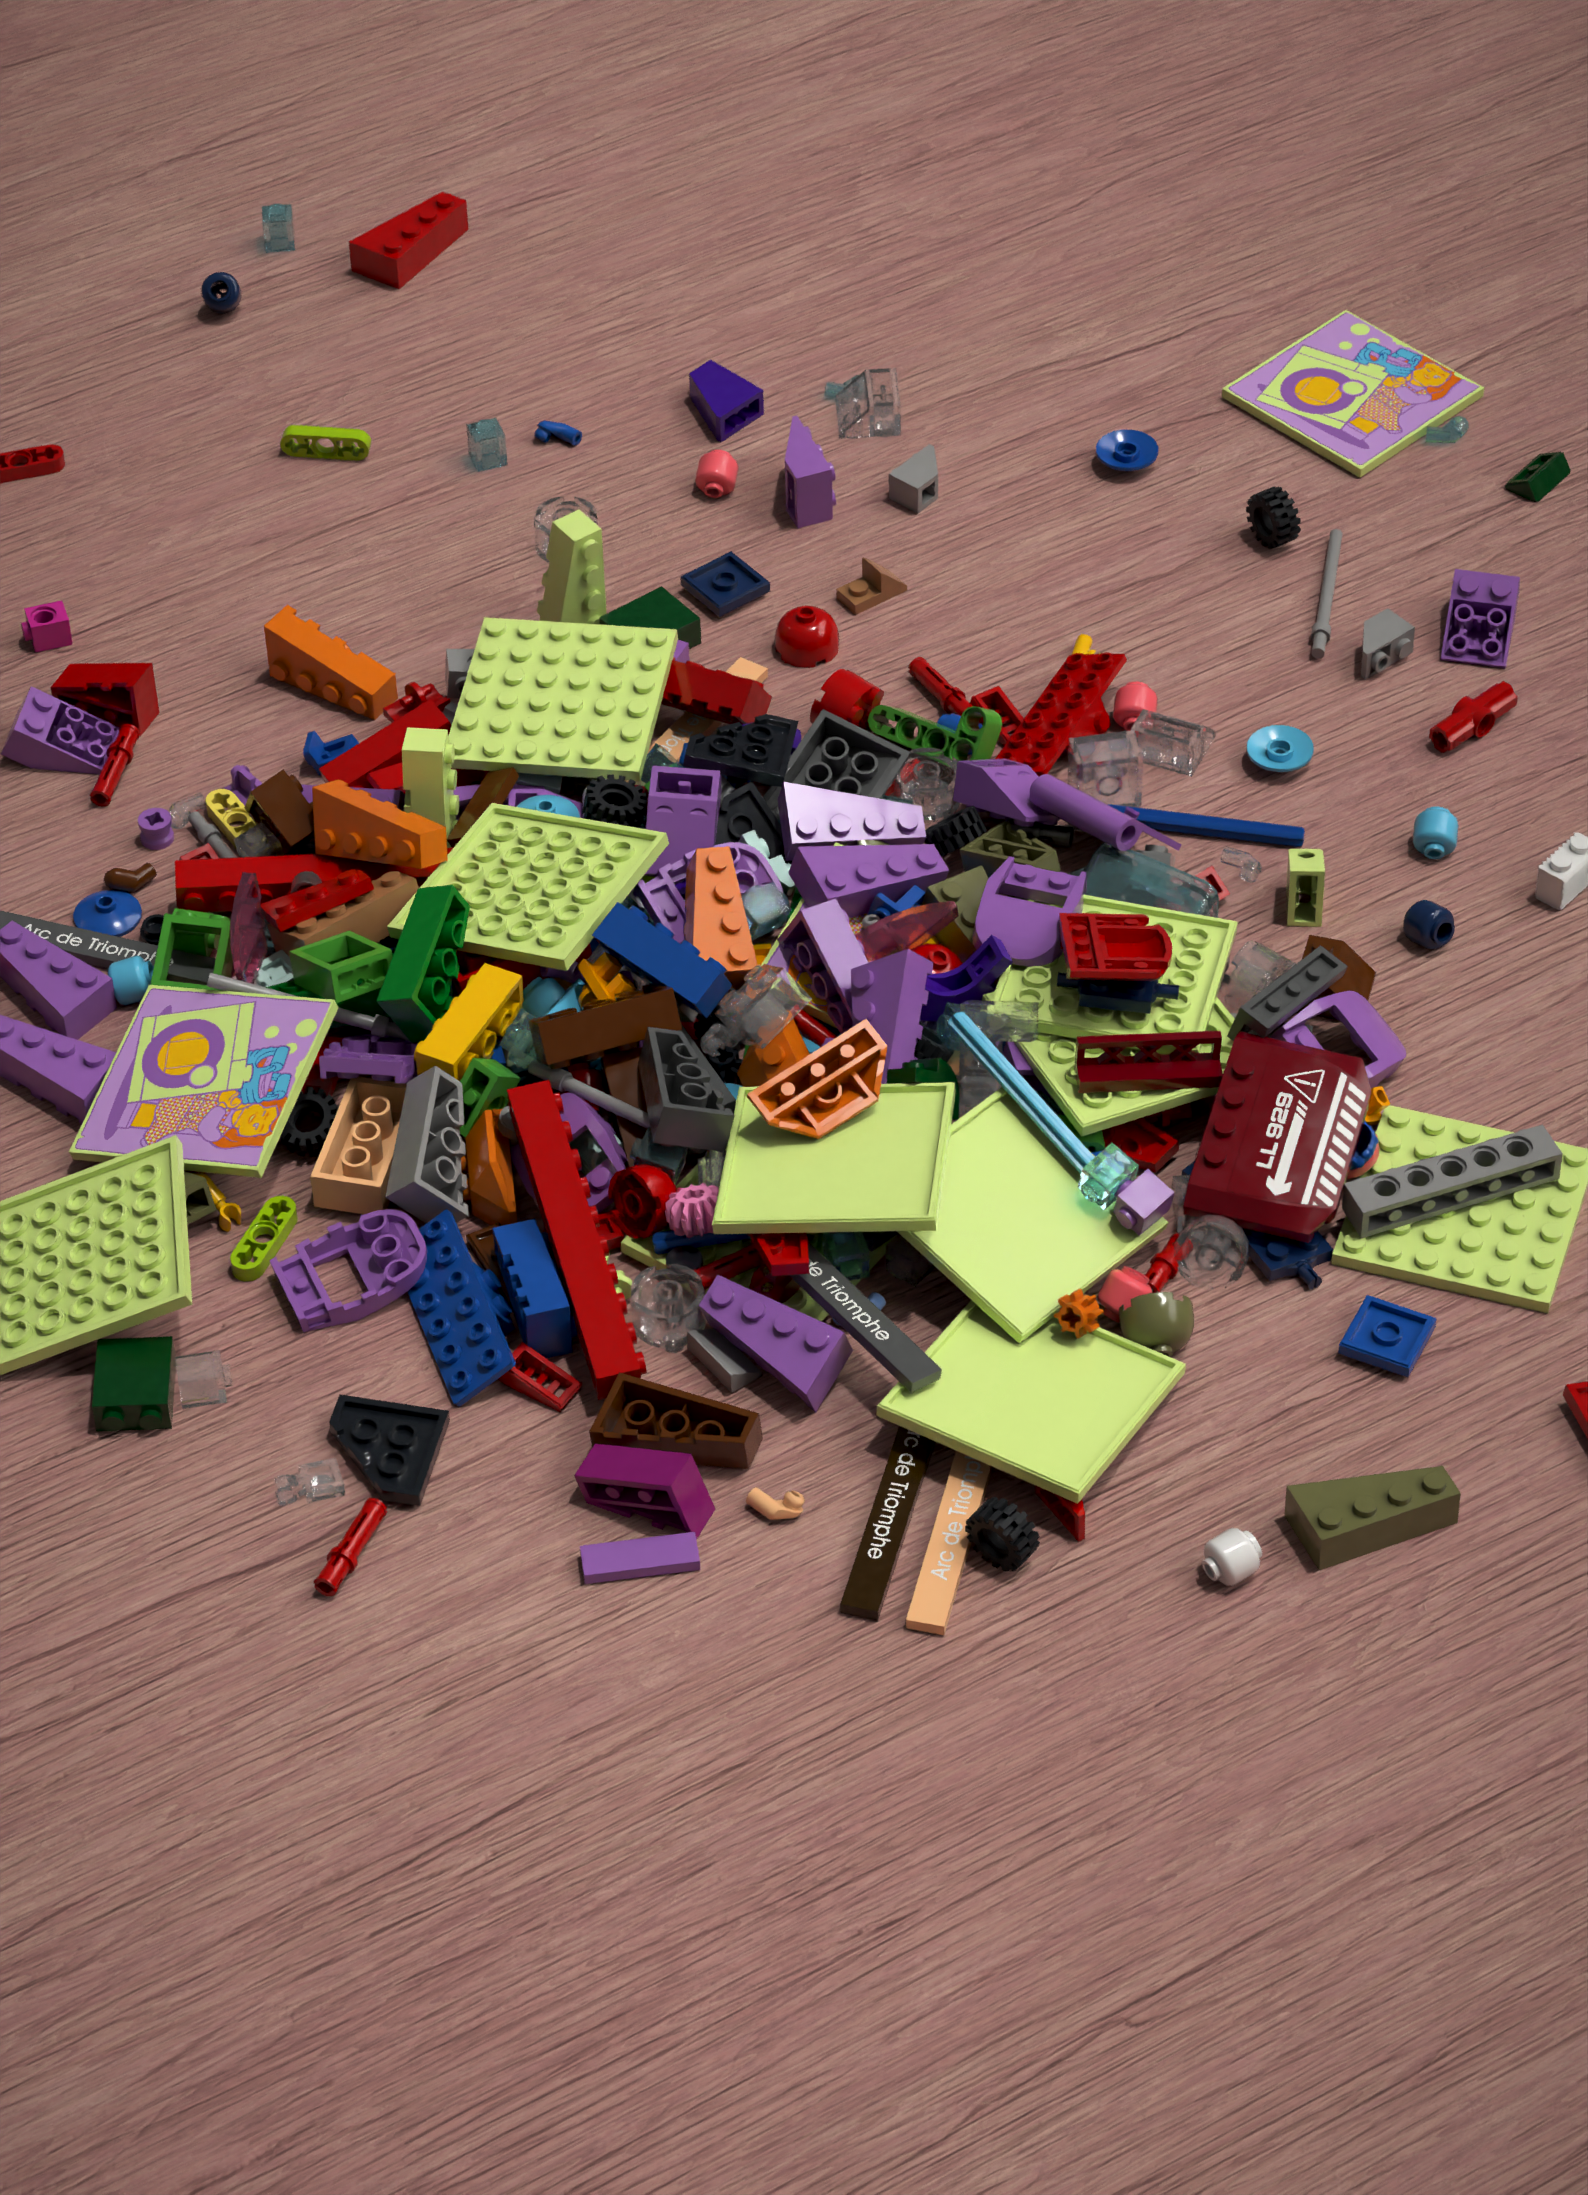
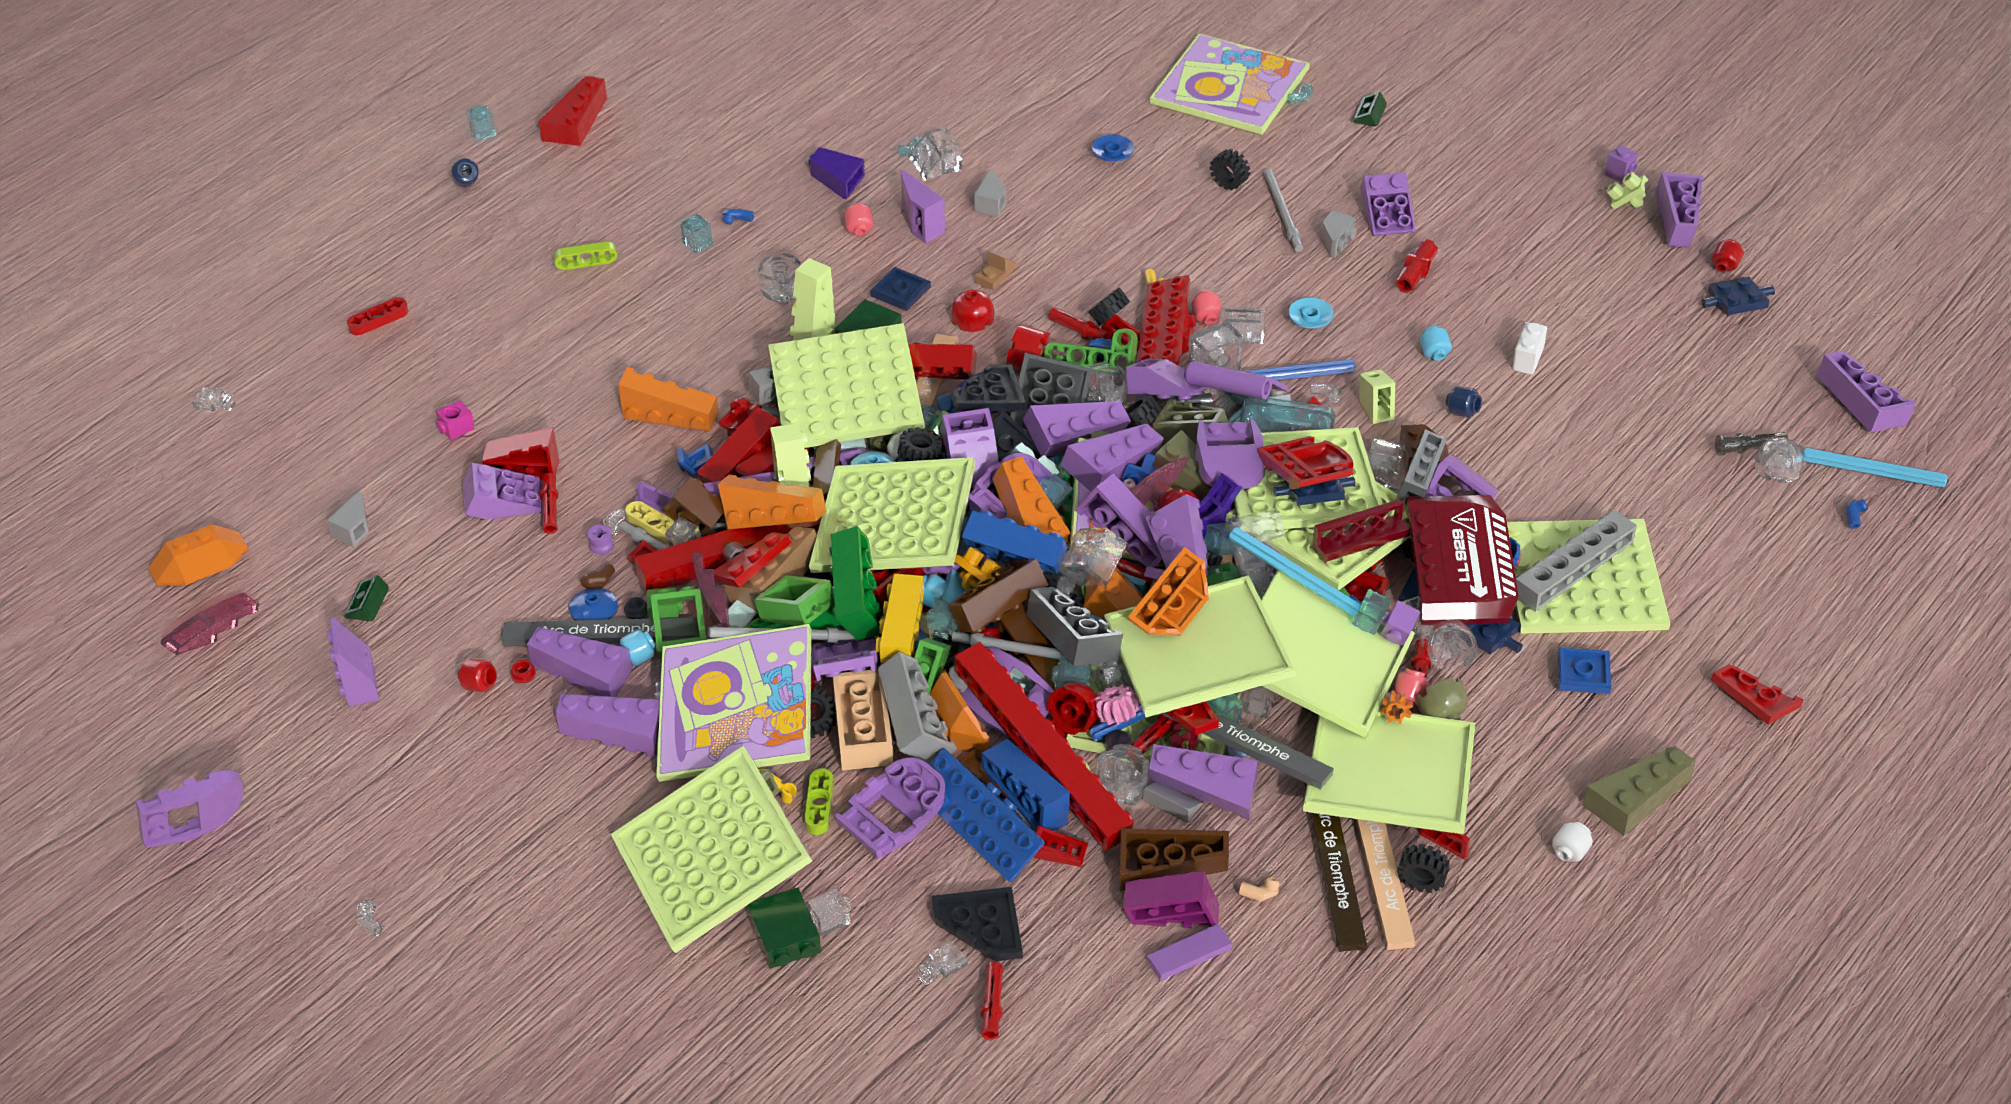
camera: 20 degrees left, 0 degrees up
(993, 672) = (1109, 306): none -> black tyre

